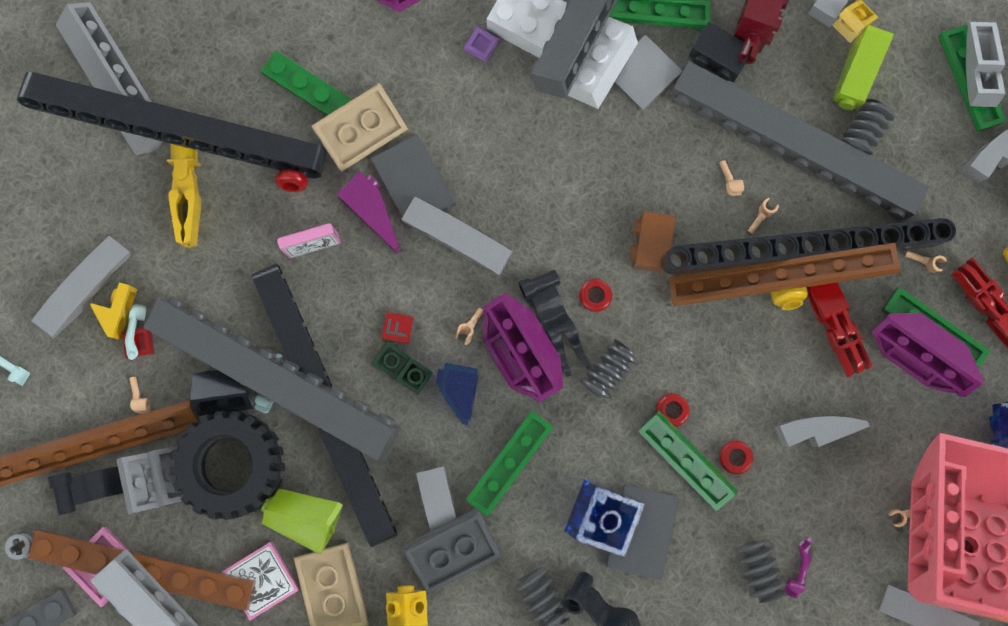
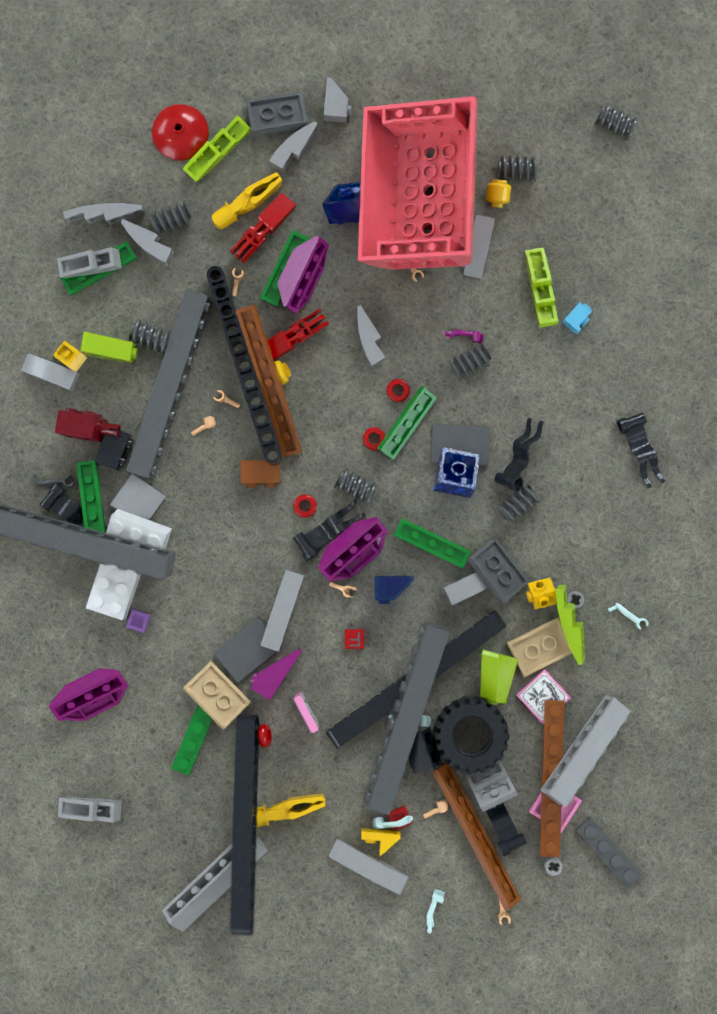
camera: 105 degrees left, 5 degrees up
(402, 368) = (381, 630): dark green slope -> none

